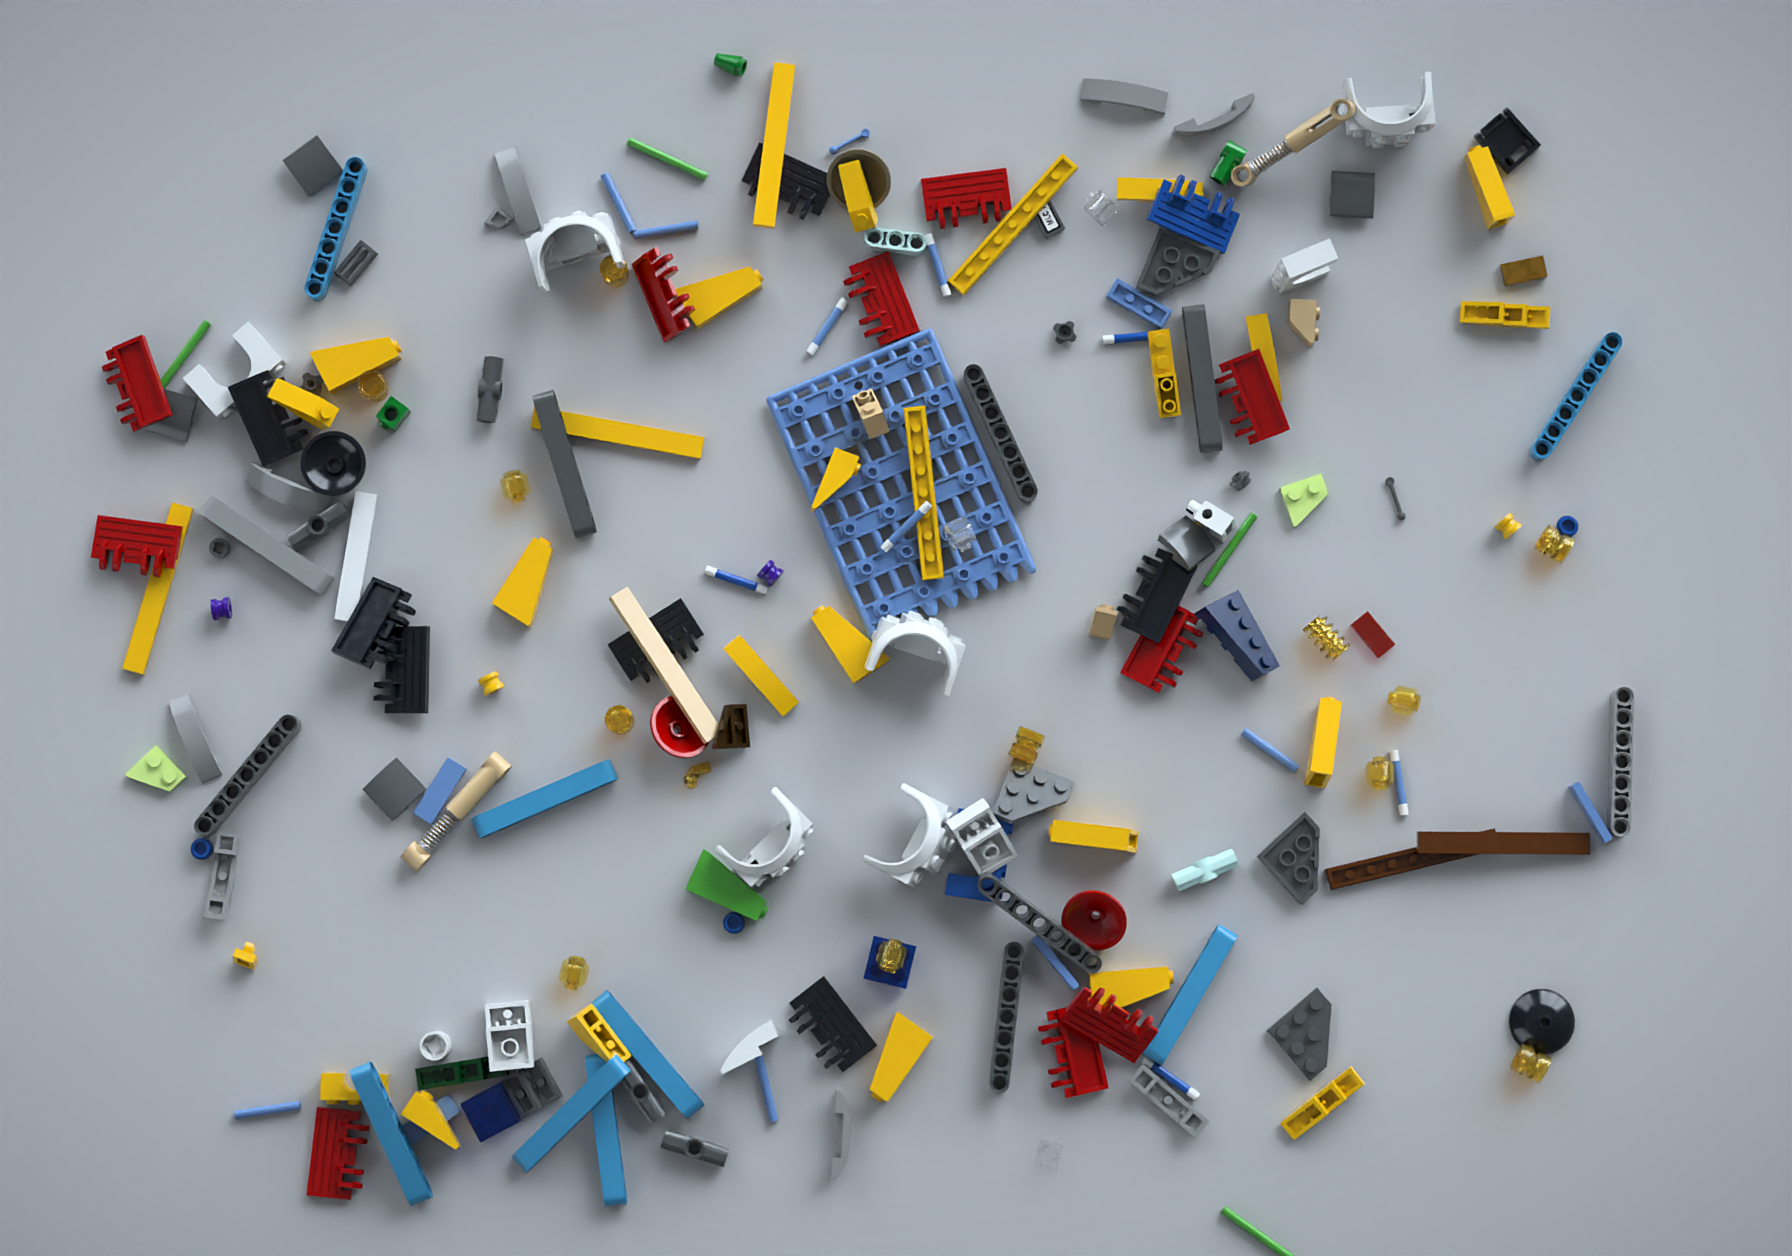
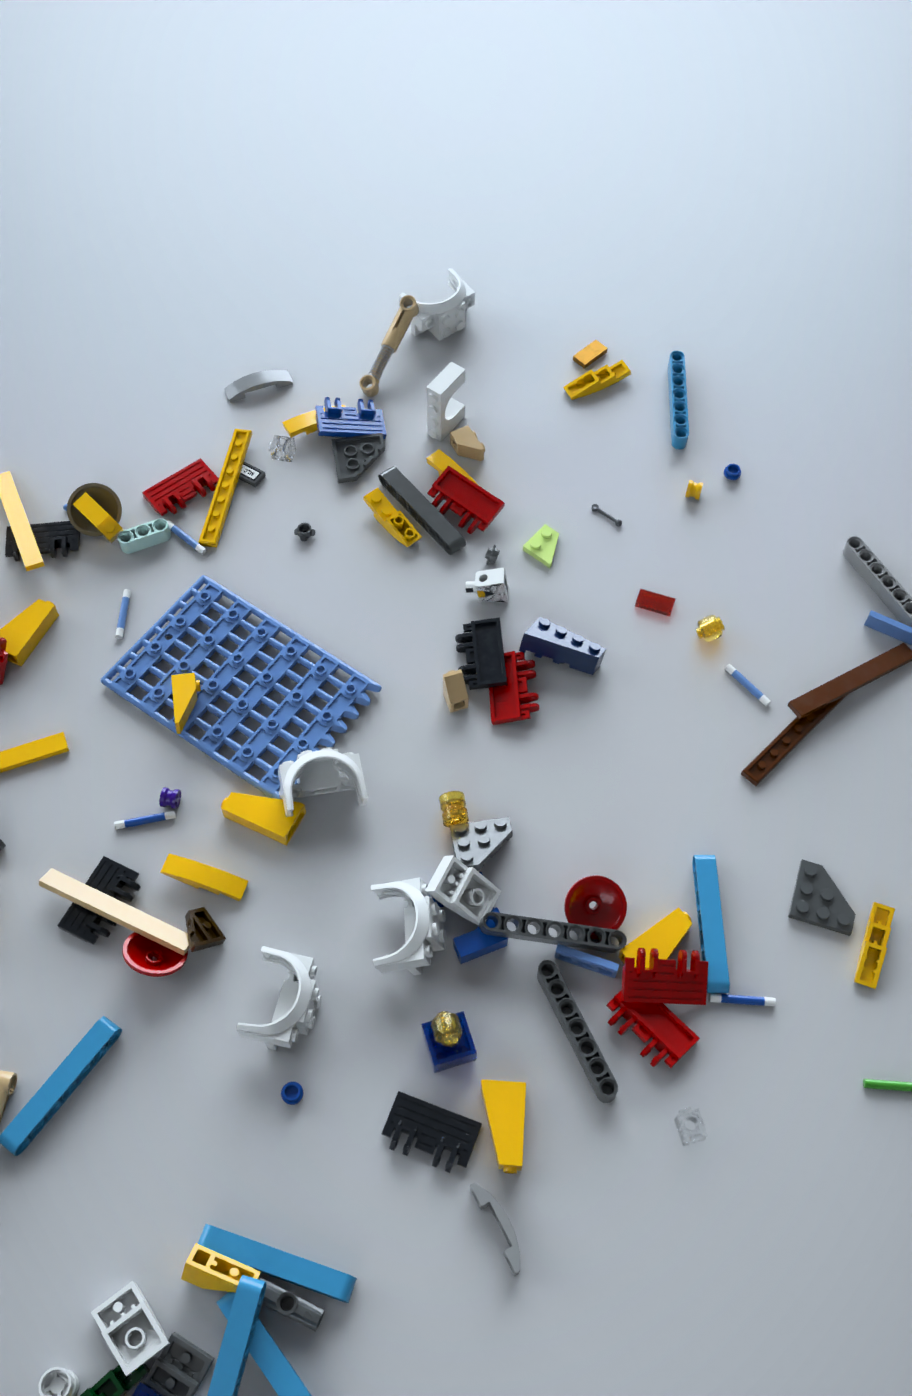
camera: 30 degrees left, 25 degrees down
(574, 972) = (165, 1227): clear yellow head -> none
(619, 719) = (97, 977): clear yellow wheel -> none
(680, 1144) = (353, 1331): dark grey piece -> none
(694, 772) = (188, 987): clear yellow arm -> none
(722, 886) = (267, 1066): bright green slope -> none
(750, 1046) = (368, 1192): white slope -> none
(768, 1097) = (406, 1227): medium blue bar -> none
(870, 413) = (188, 644): tan slope -> none
(885, 298) = (155, 576): red hinge -> none
(905, 527) = (261, 703): medium blue bar -> none
(923, 491) = (262, 677): yellow tile -> none
(959, 534) = (305, 686): clear brick -> none
(1000, 423) = (301, 620): dark grey beam -> none
(1094, 836) = (551, 844): yellow slope -> none
(1122, 338) = (351, 514): blue bar -> none
(1139, 304) = (345, 491): medium blue tile -> none
(1168, 1100) = (755, 1019): light grey slope -> none
(1187, 543) = (485, 609): dark grey slope -> none
(1191, 128) = (319, 378): light grey slope -> none
(1205, 870) = (653, 822): light aqua piece -> none
(1229, 550) = (514, 603): bright green bar -> none
(1230, 158) = (353, 390): green piece -> none
(1270, 750) = (639, 714): medium blue bar -> none
(1295, 858) = (714, 776): dark grey plate -> none
(1323, 743) = (676, 686): yellow slope -> none
(1326, 637) = (624, 617): clear yellow piece -> none
(1352, 194) = (440, 361): dark grey slope -> none
(1379, 773) = (730, 683): clear yellow head -> none
(1488, 187) = (536, 320): yellow slope -> none
(1504, 138) = (524, 294): black container -> none
(1555, 544) = (733, 483): clear yellow wheel -> none

